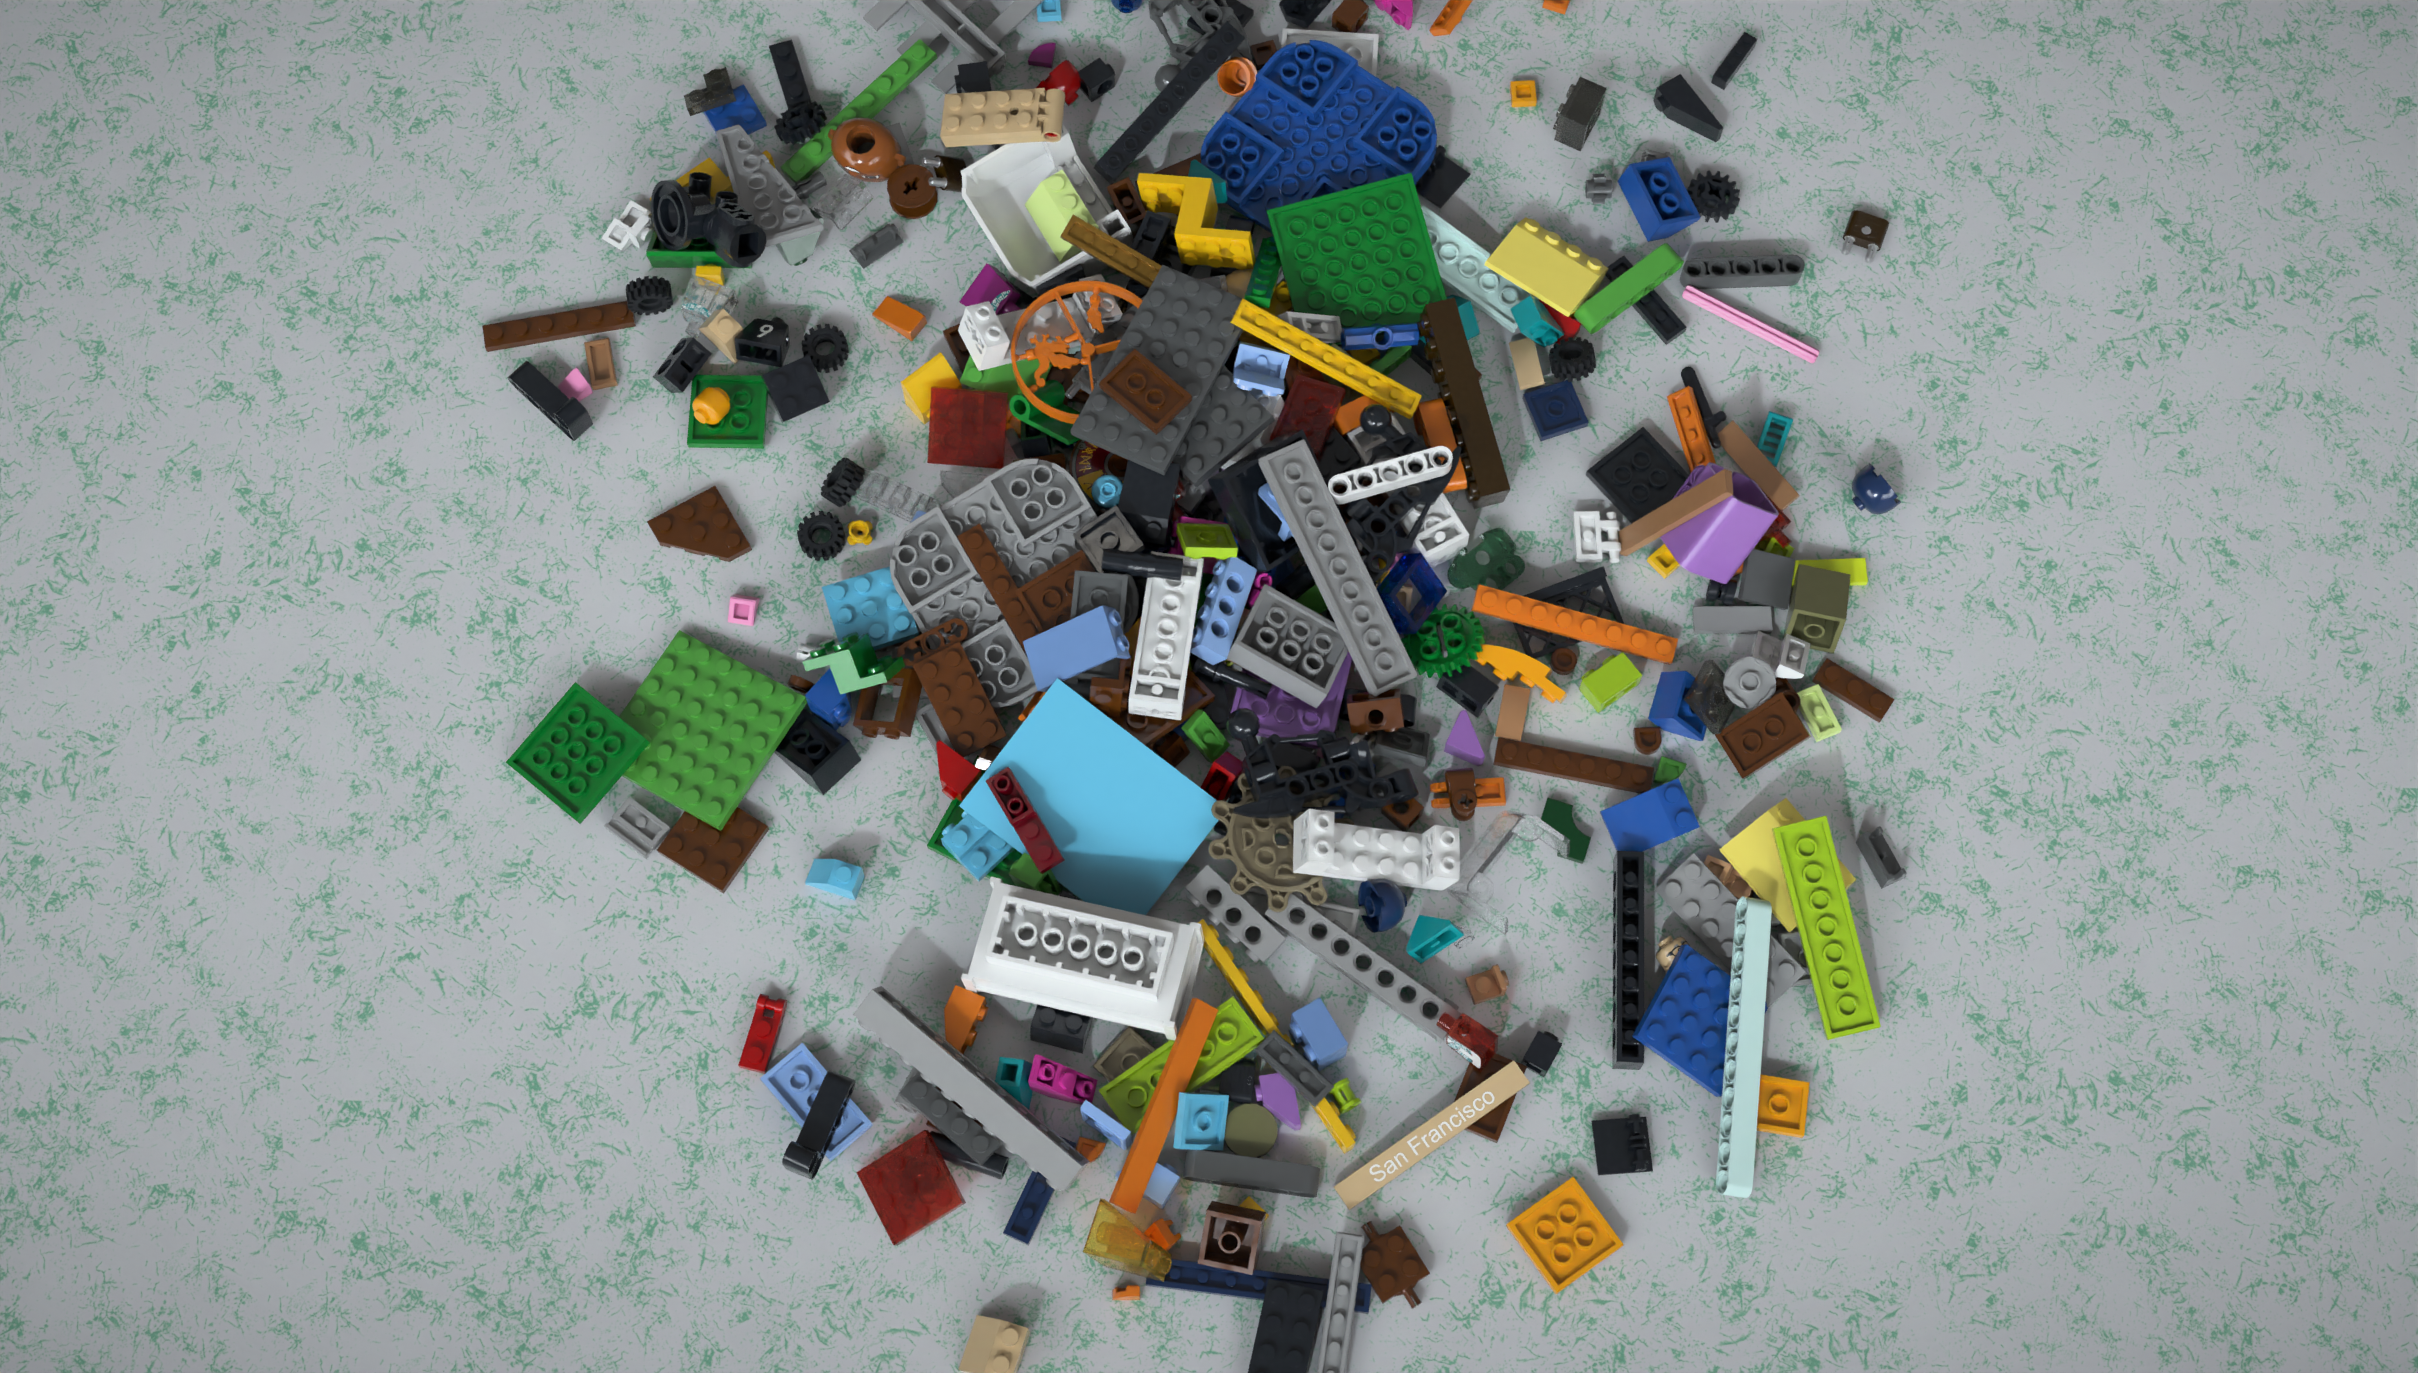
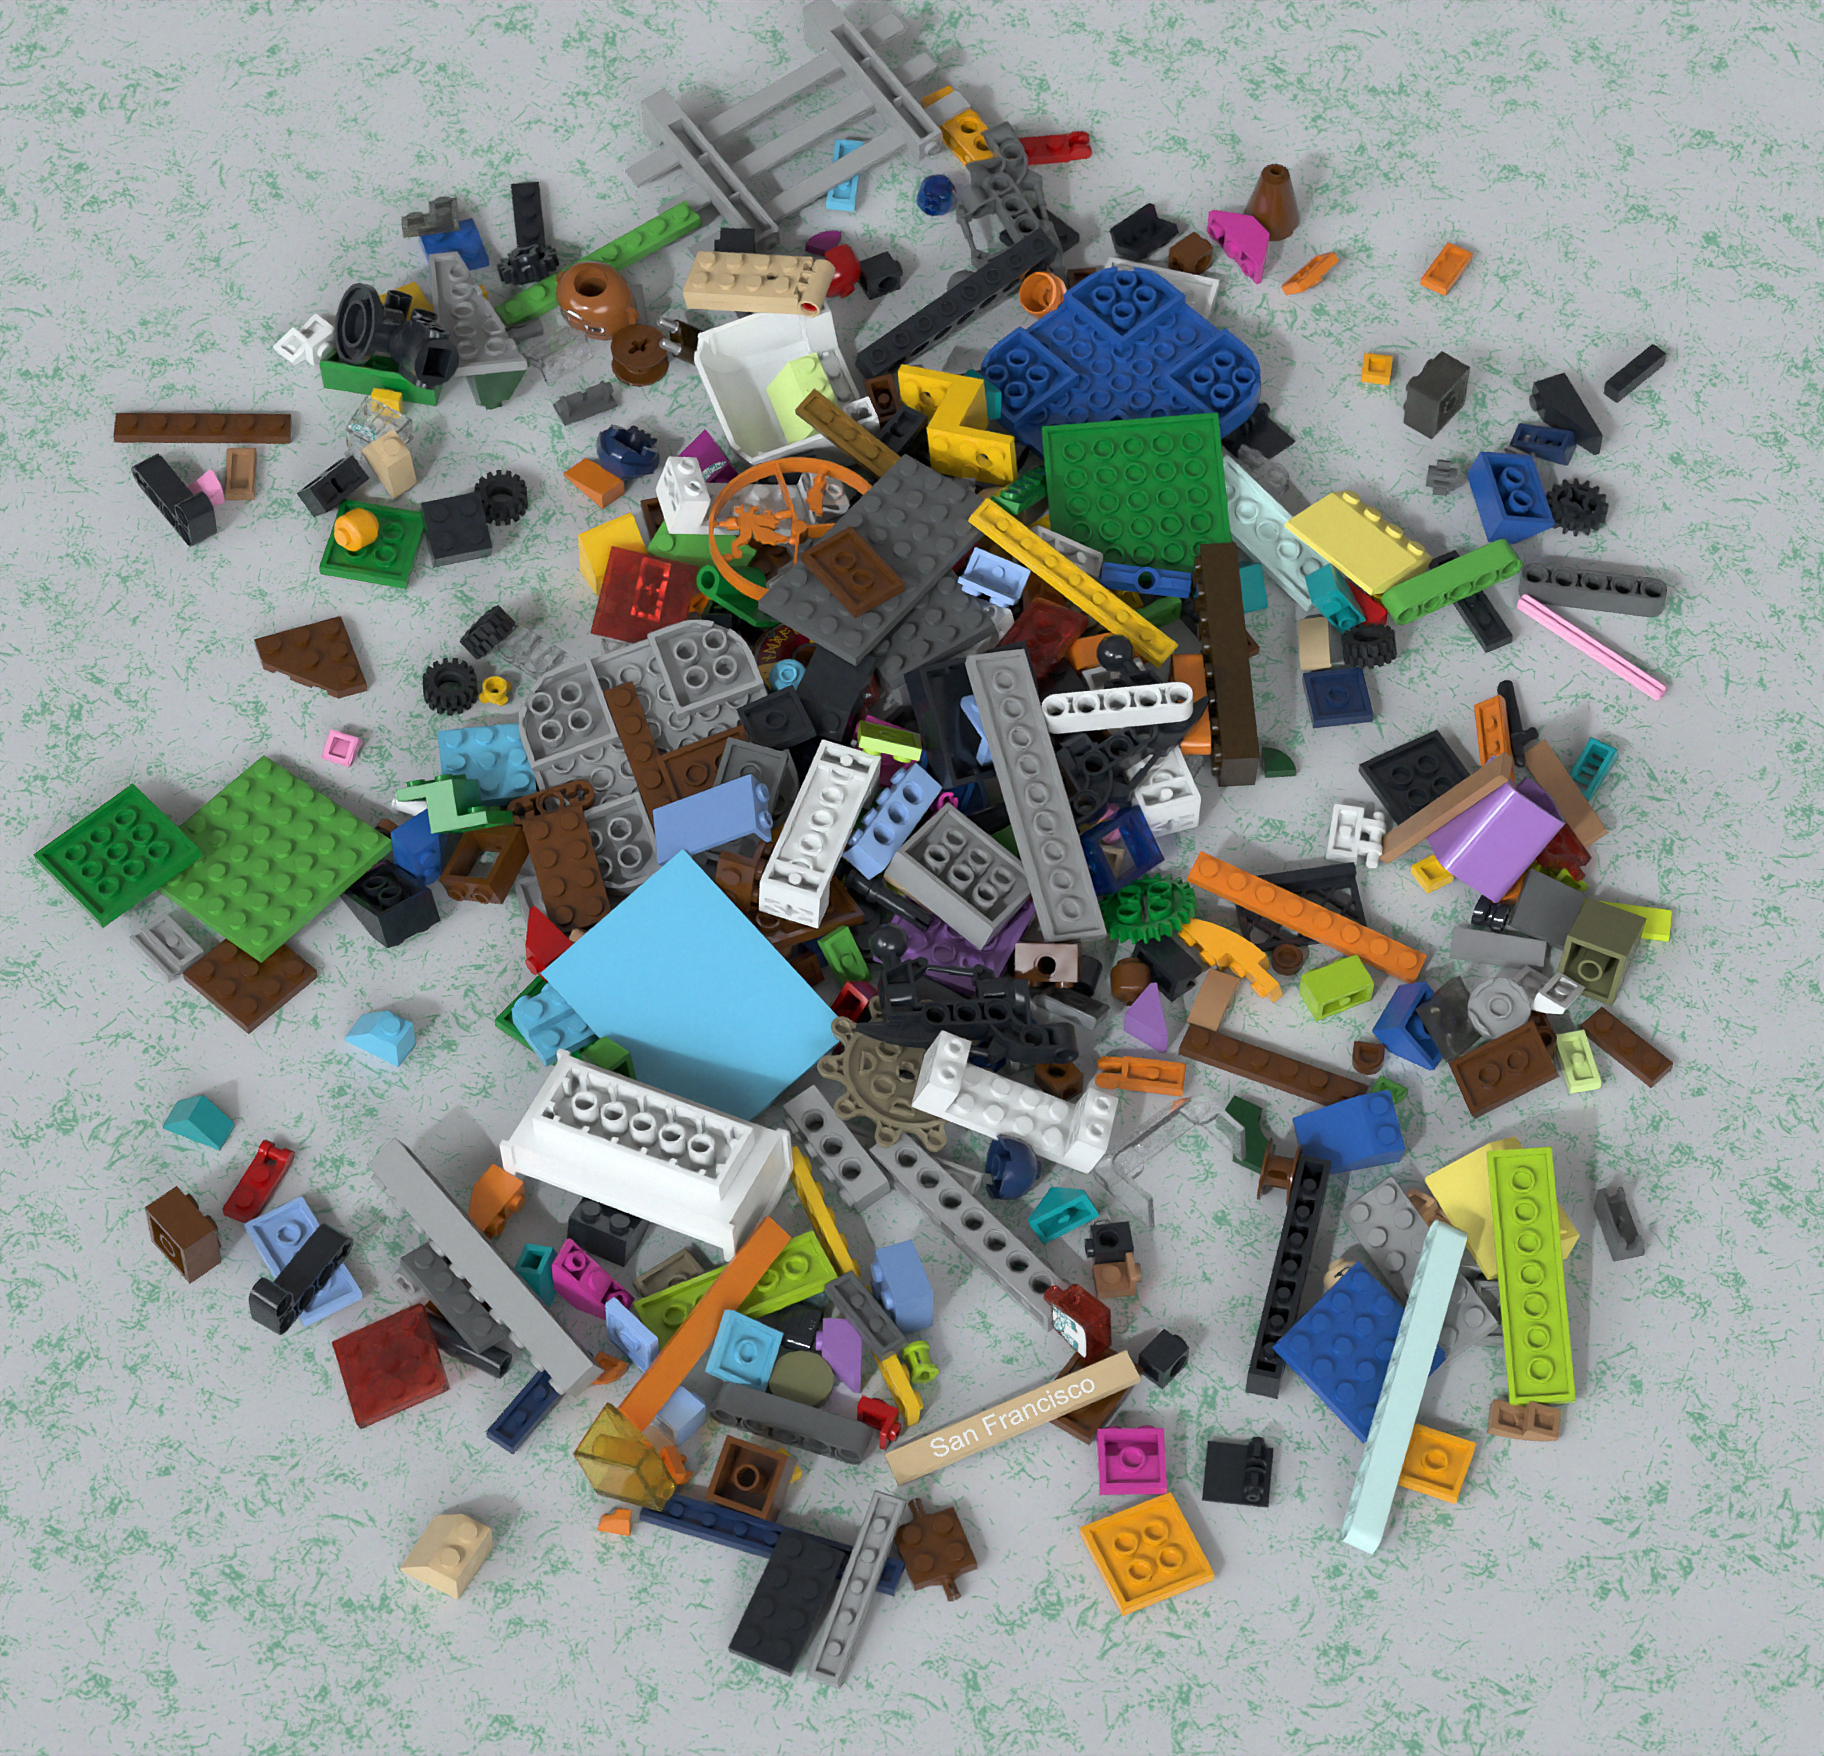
camera: 10 degrees right, 15 degrees down
(649, 295) = (312, 409): black tyre -> none
(701, 987) = (199, 1121): none -> teal slope
(707, 1098) = (184, 1234): none -> reddish brown brick
(763, 342) = (430, 476): black torso -> none
(923, 288) = (627, 452): none -> dark blue helmet
(1025, 820) = (612, 996): dark red slope -> none
(1142, 564) = (808, 747): black axle -> none
(1320, 1151) = (880, 1416): none -> red bracket
(1442, 709) = (1129, 980): none -> reddish brown head
(1456, 213) = (1269, 475): none -> clear bracket
(1461, 789) = (1131, 1068): reddish brown piece -> none
(1467, 572) = (1237, 829): clear green piece -> none
(1481, 947) = (1115, 1234): none -> black brick
(1519, 480) = (1277, 763): none -> dark green tile
(1536, 1155) = (1131, 1460): none -> dark pink plate
(1602, 866) = (1278, 1171): none -> reddish brown piece
(1672, 146) = (1552, 453): none -> dark blue slope
(1841, 1051) = (1529, 1423): none -> medium nougat slope
(1865, 232) = (1750, 573): dark brown piece -> none
(1873, 492) = (1695, 840): dark blue cylinder -> none

